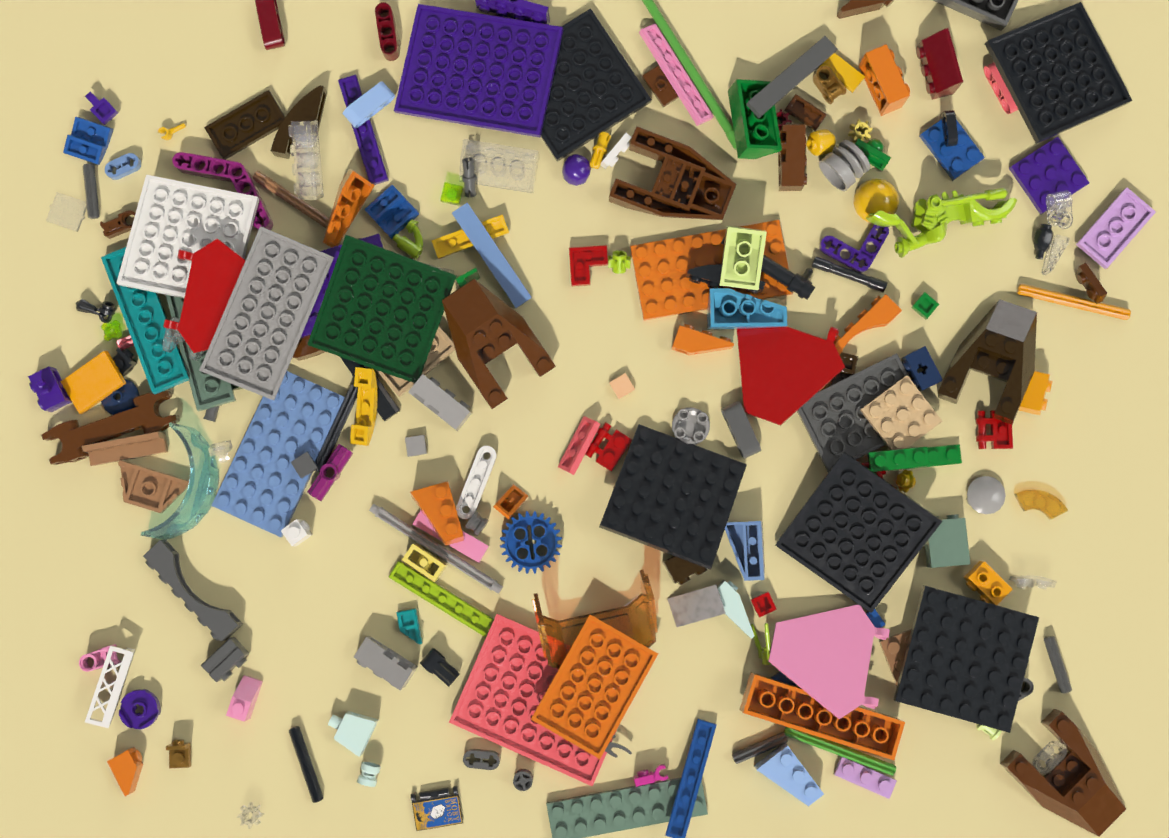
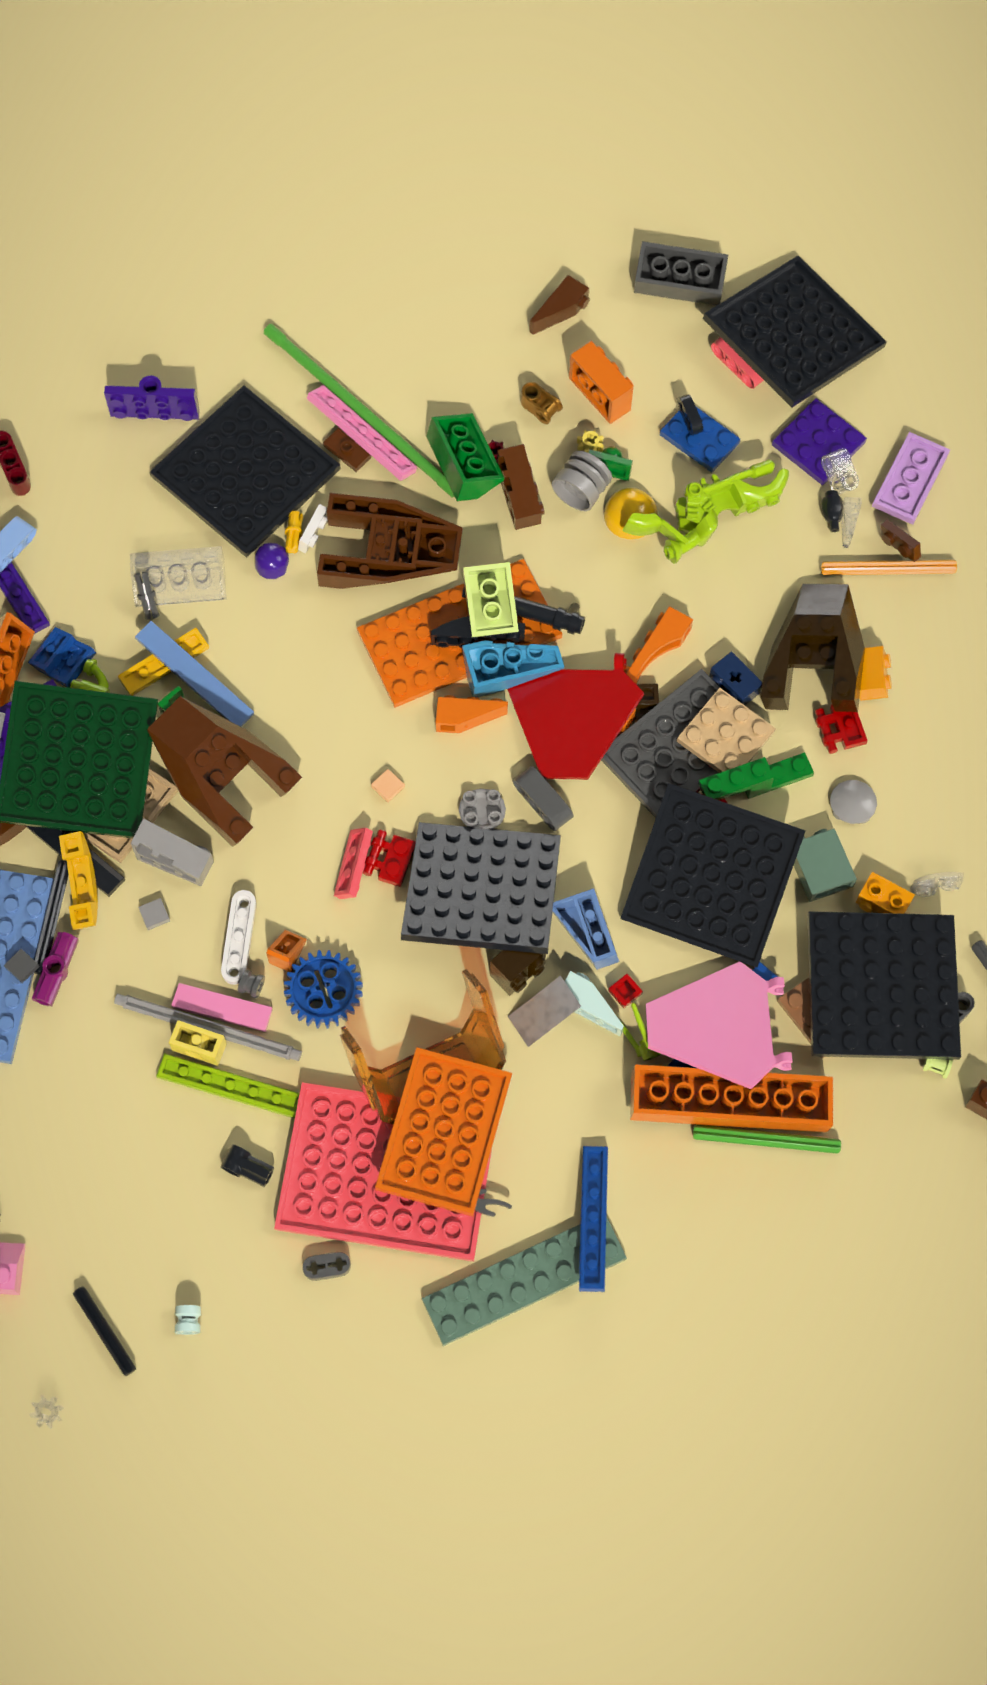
camera: 20 degrees left, 15 degrees down
(297, 532) = (29, 1048): white brick -> none
(353, 731) = (156, 1270): light aqua torso -> none
(385, 663) = (177, 1177): light grey wedge -> none
(409, 624) = (196, 1126): teal tile -> none
(436, 809) = (285, 1343): piece -> none
(439, 509) = (202, 977): orange wedge -> none
(451, 194) = (129, 620): clear neon green plate -> none
(479, 70) = (129, 479): dark purple plate -> none
(522, 783) = (383, 1272): dark grey wheel -> none
(582, 258) = (303, 656): red plate -> none
(619, 261) = (348, 646): lime gear -> none
(644, 777) = (538, 1232): dark pink plate -> none
(759, 748) = (668, 1162): dark grey axle -> none
(788, 772) = (715, 1181): light blue wedge -> none
(791, 77) = (494, 401): dark grey tile -> none
(805, 112) = (515, 435): reddish brown plate -> none
(821, 142) = (547, 464): yellow head -> none
(828, 266) = (596, 596): black piece -> none
(845, 72) = (558, 387): yellow tile -> none
(863, 254) = (631, 573): dark purple beam -> none
(865, 777) = (807, 1164): lavender plate -> none
(905, 480) = (755, 804): yellow plant -> none
(925, 305) = (719, 611): green plate -> none
(939, 64) = (659, 353): dark red slope -> none
(1041, 501) = (919, 793): clear yellow tile -> none

